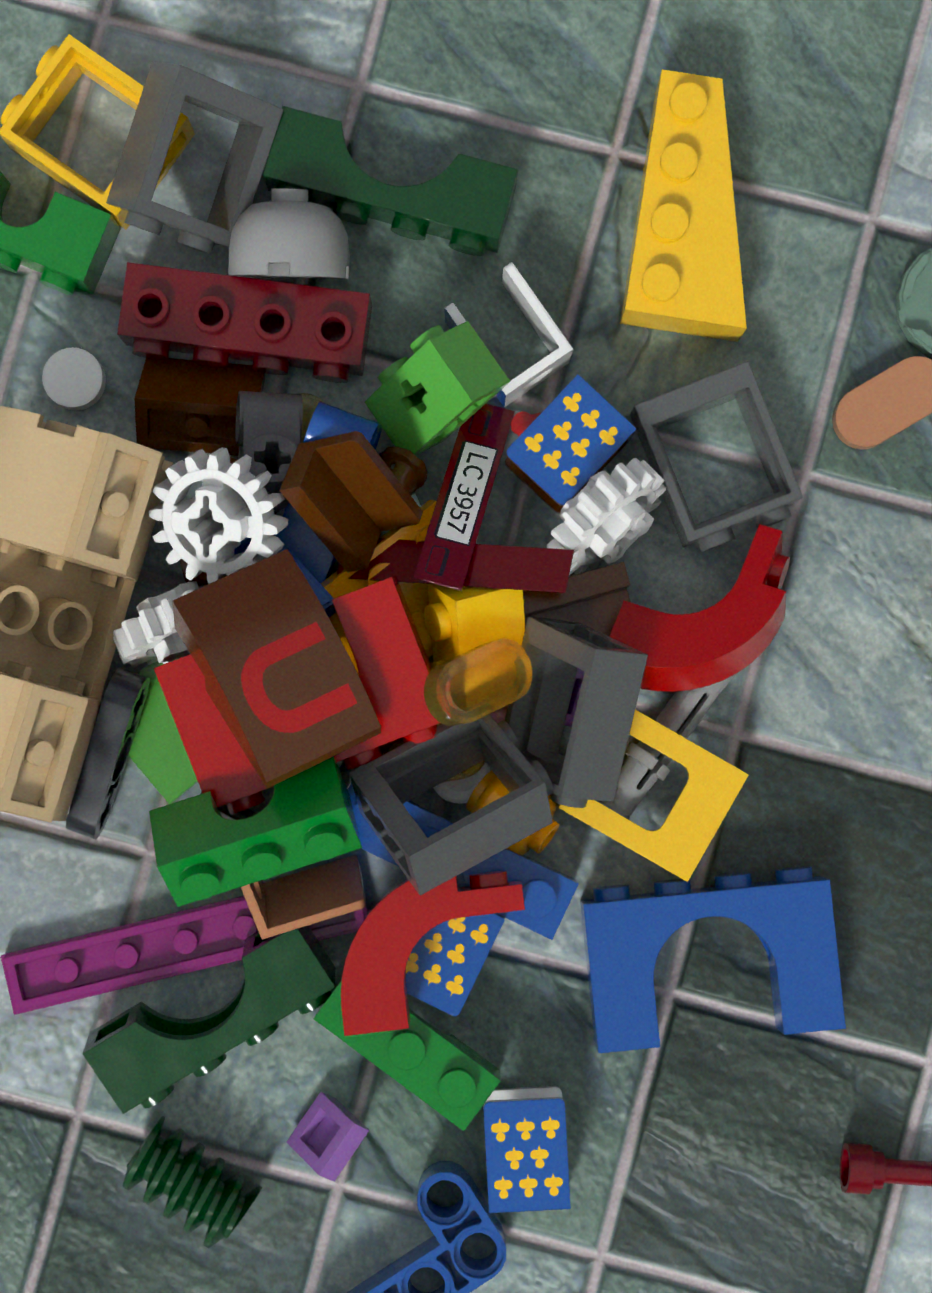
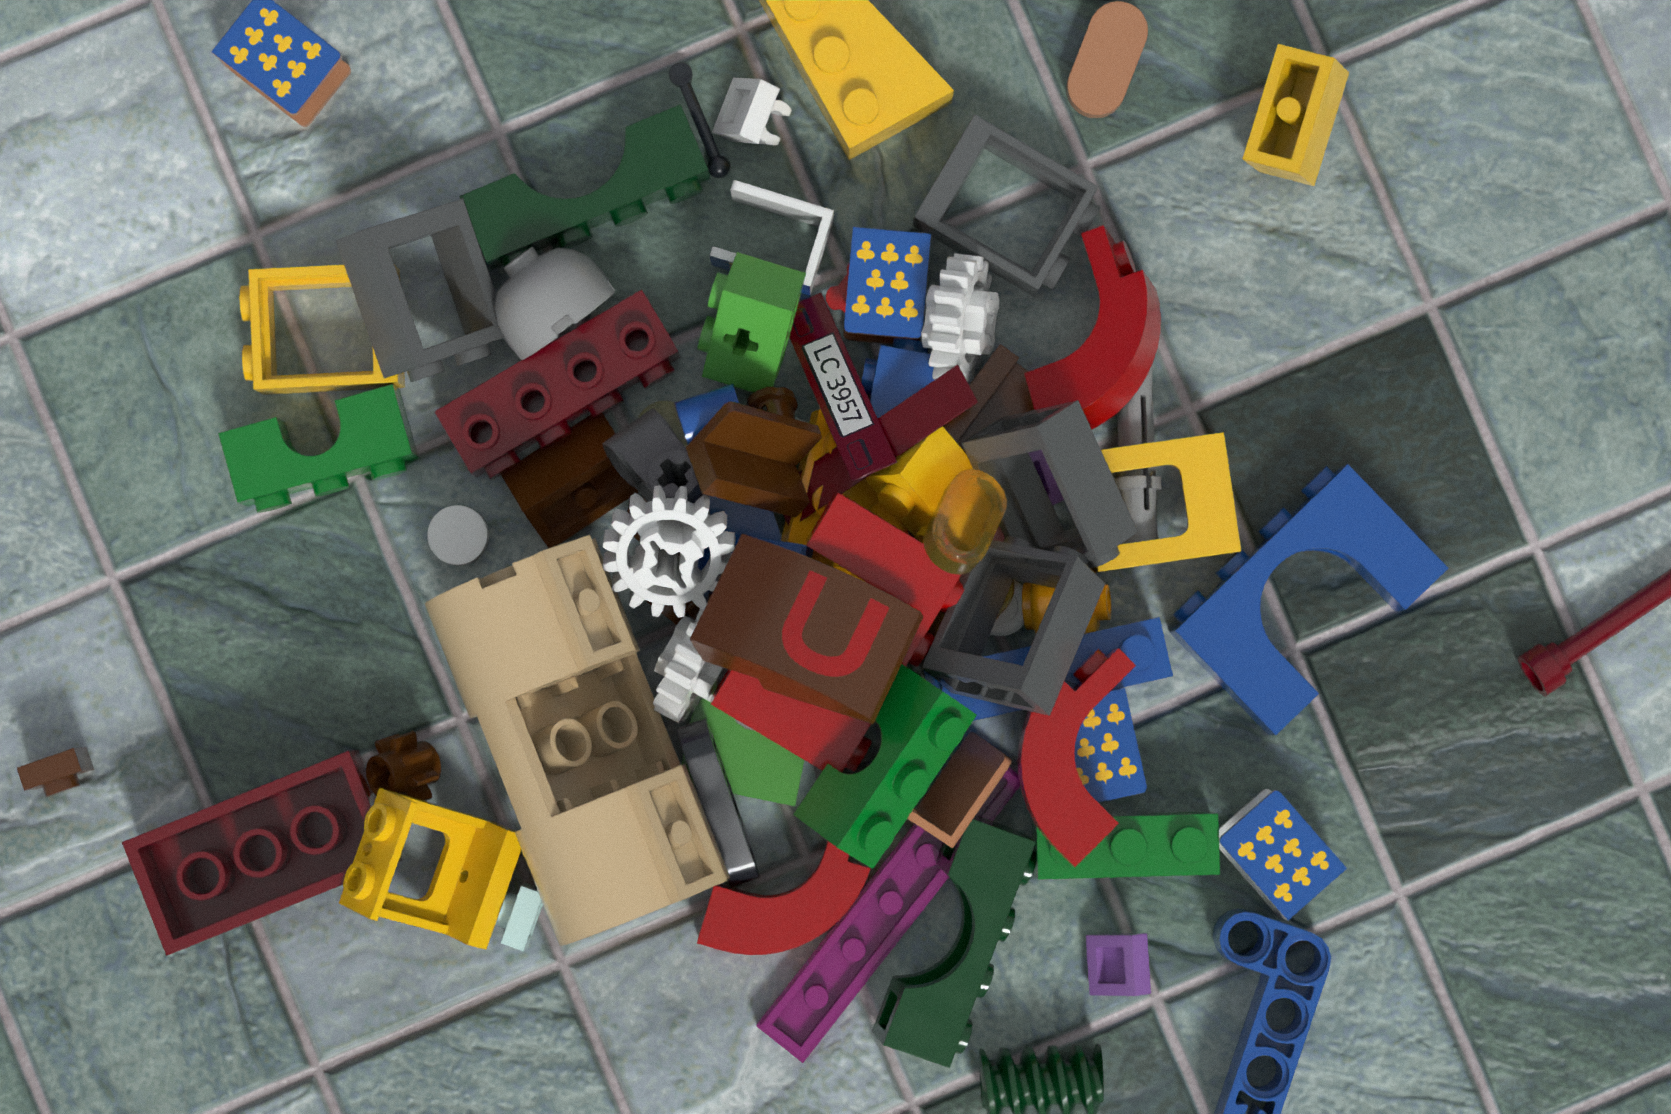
camera: 45 degrees left, 0 degrees up
(77, 884) = (783, 921): none -> red arch
(520, 520) = (896, 374): none -> blue brick
(538, 154) = (681, 77): none -> black hinge
(568, 219) = (748, 110): none -> white tile

